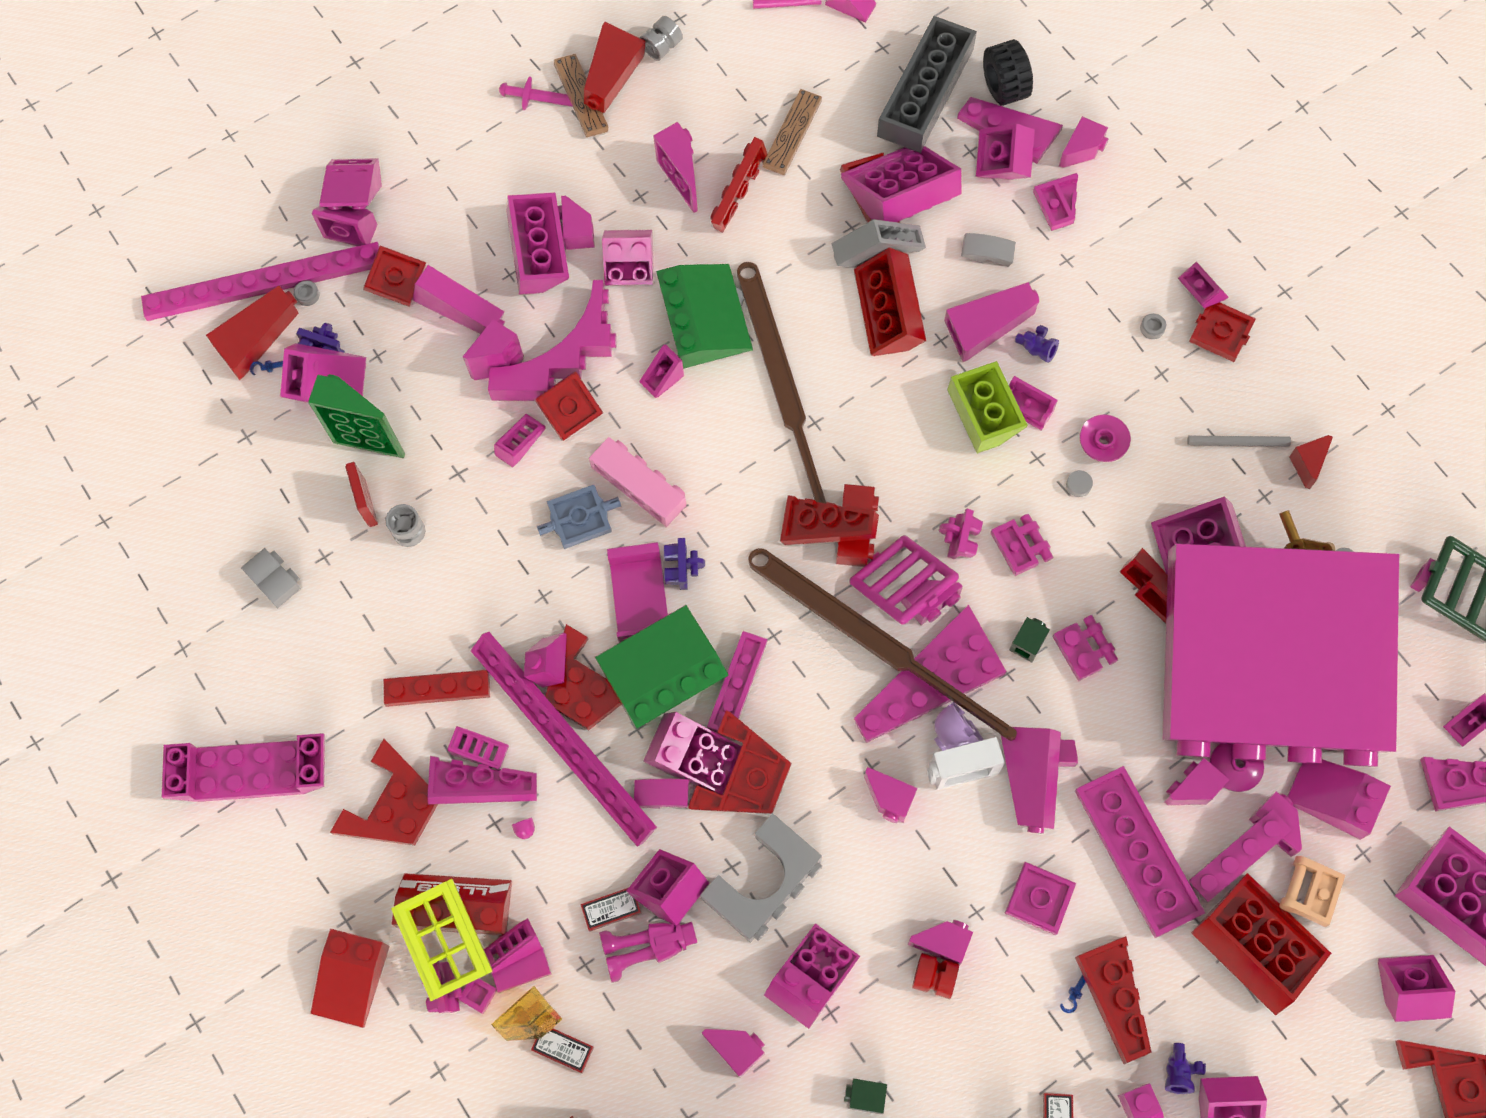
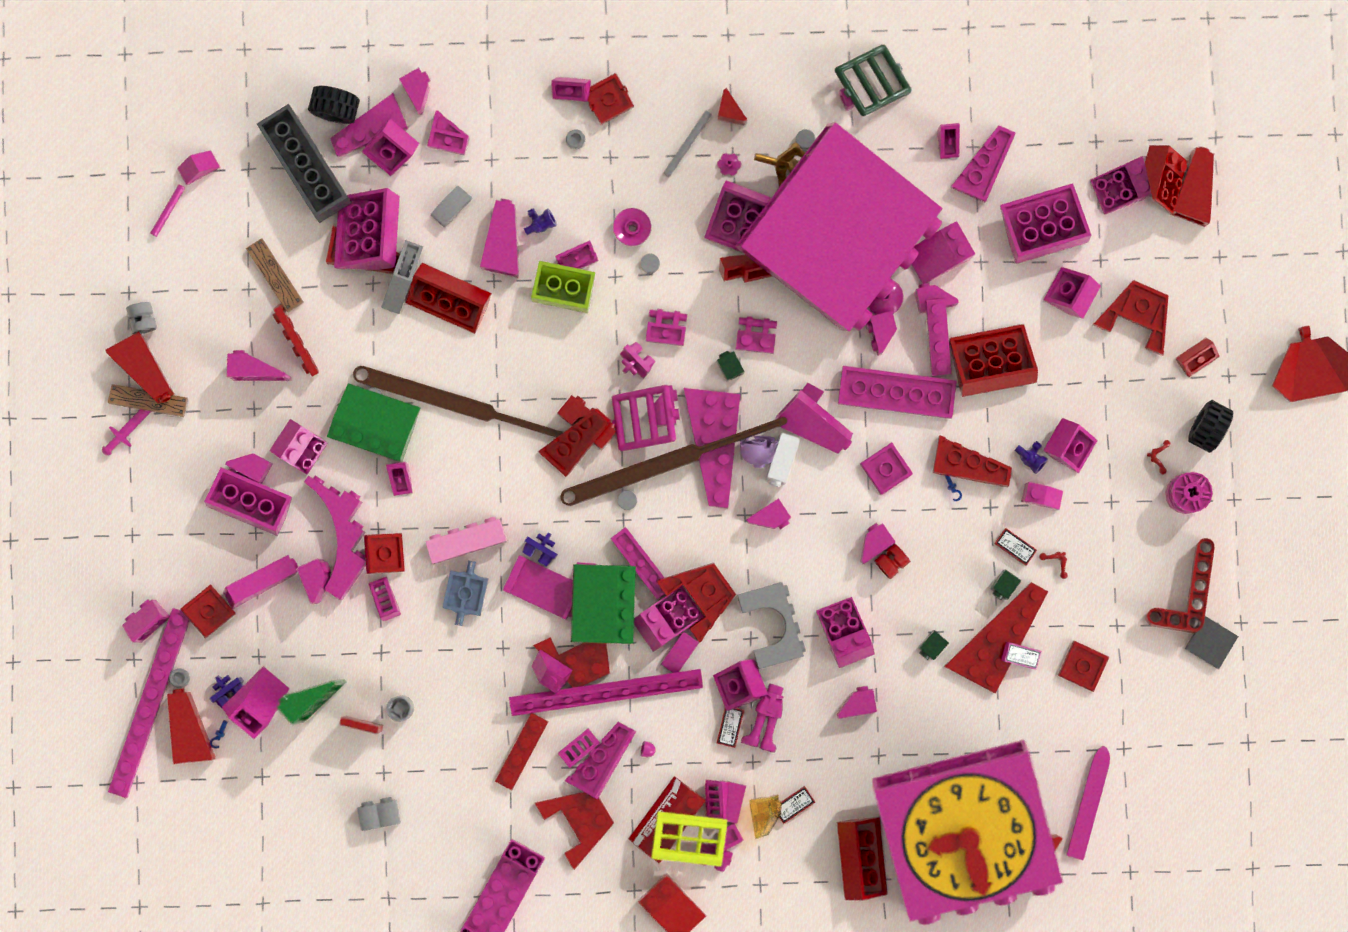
camera: 65 degrees left, 15 degrees up
(350, 183) = (121, 602): dark pink slope -> none
(798, 624) = (627, 500): none -> light grey tile
(1251, 499) = (726, 168): none -> dark pink plant
(1321, 894) = (989, 306): light nougat plate -> none

